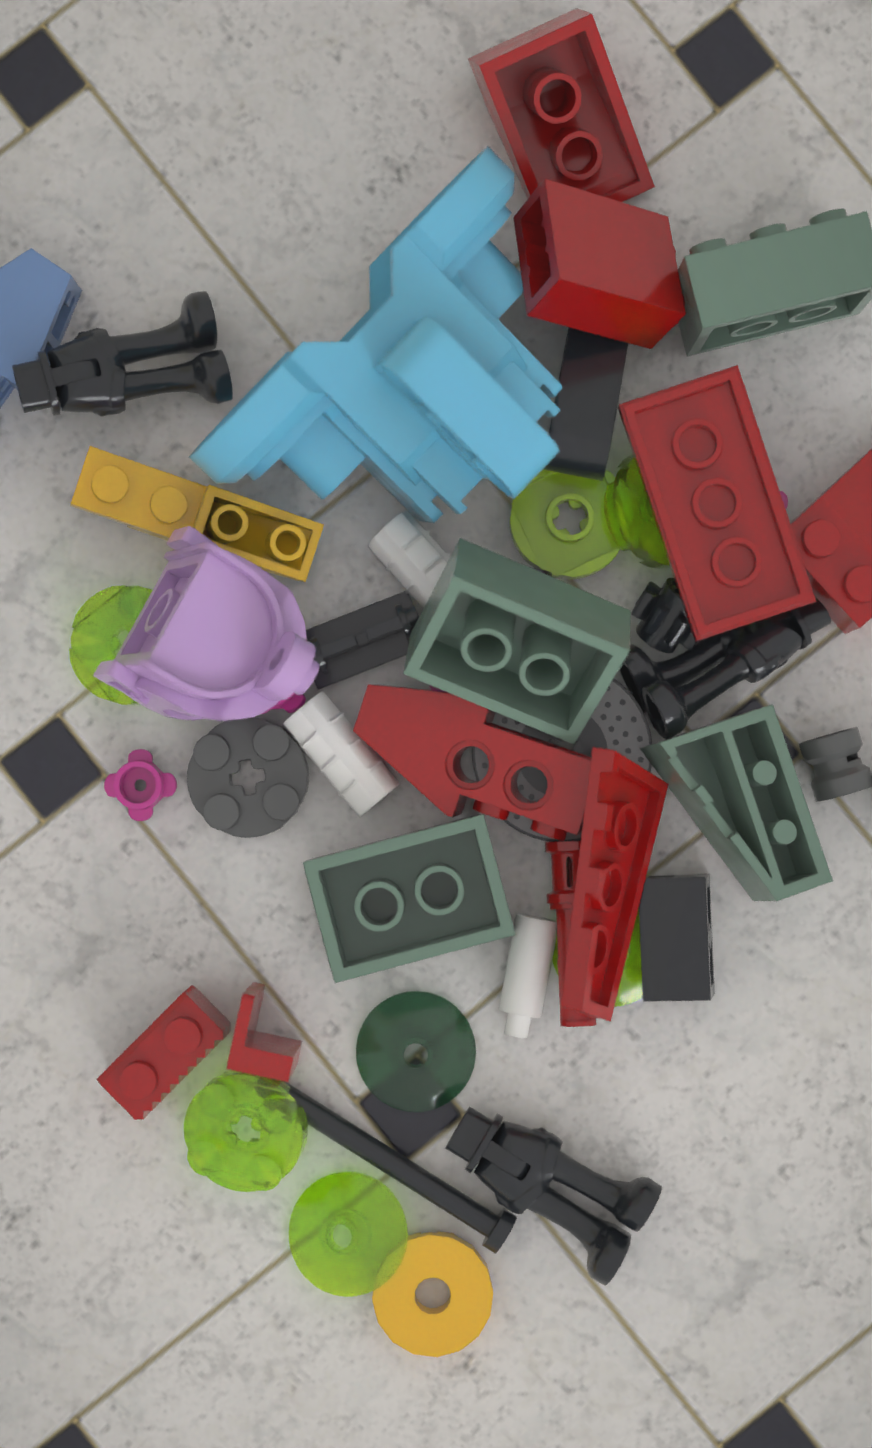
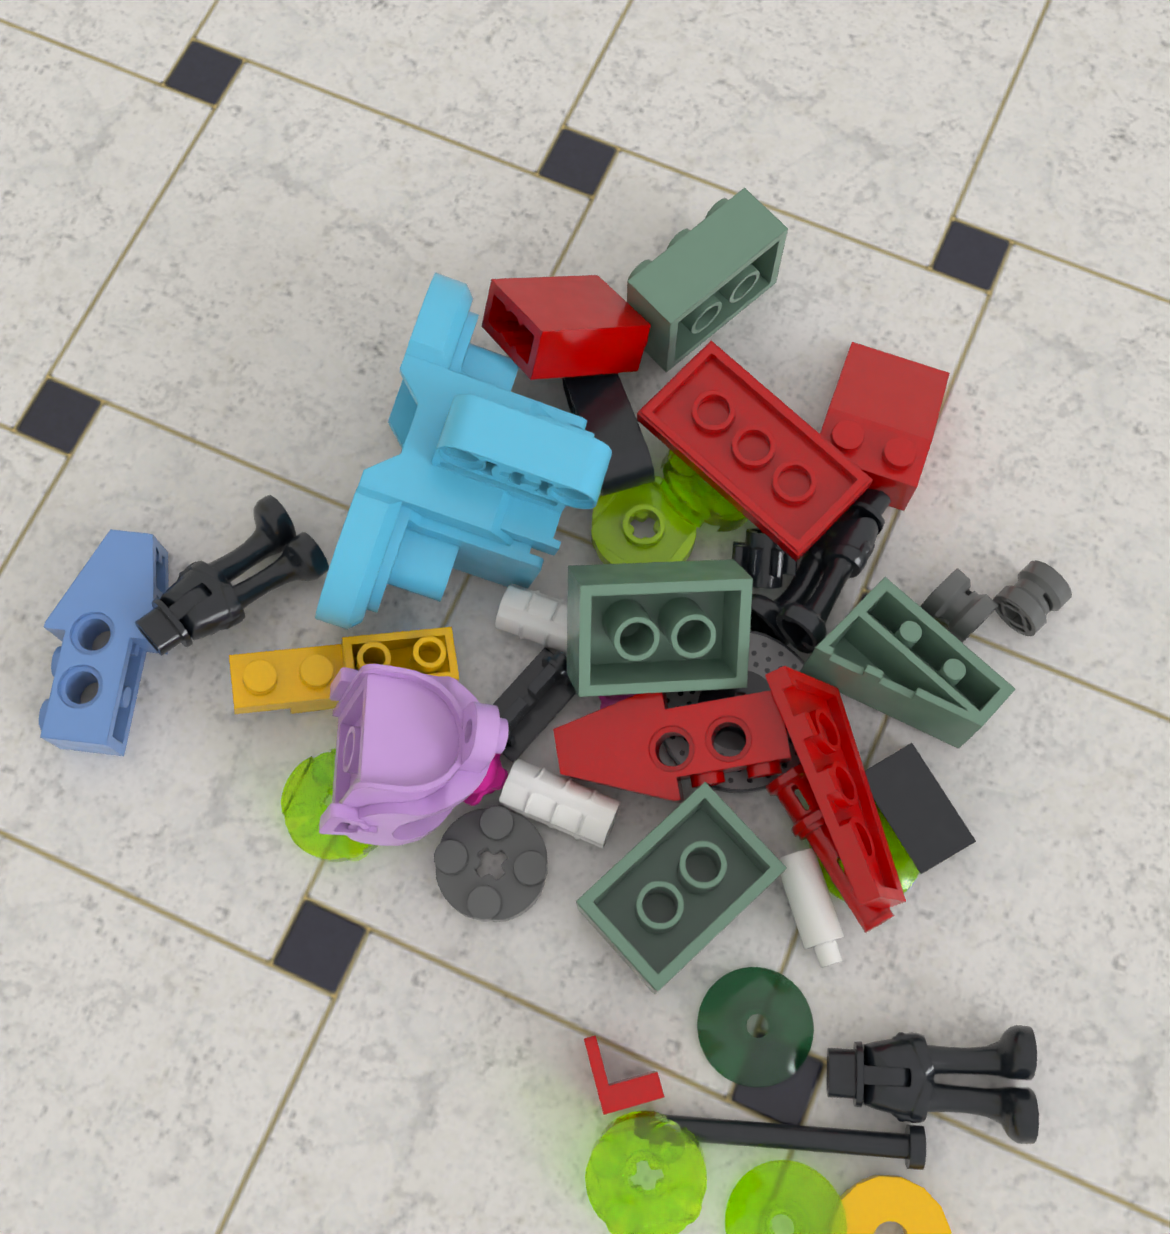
camera: 25 degrees left, 15 degrees down
(122, 785) = (394, 904): dark pink plate -> none
(165, 1053) = (539, 1143): red brick -> none
(562, 109) = (475, 237): red slope -> none

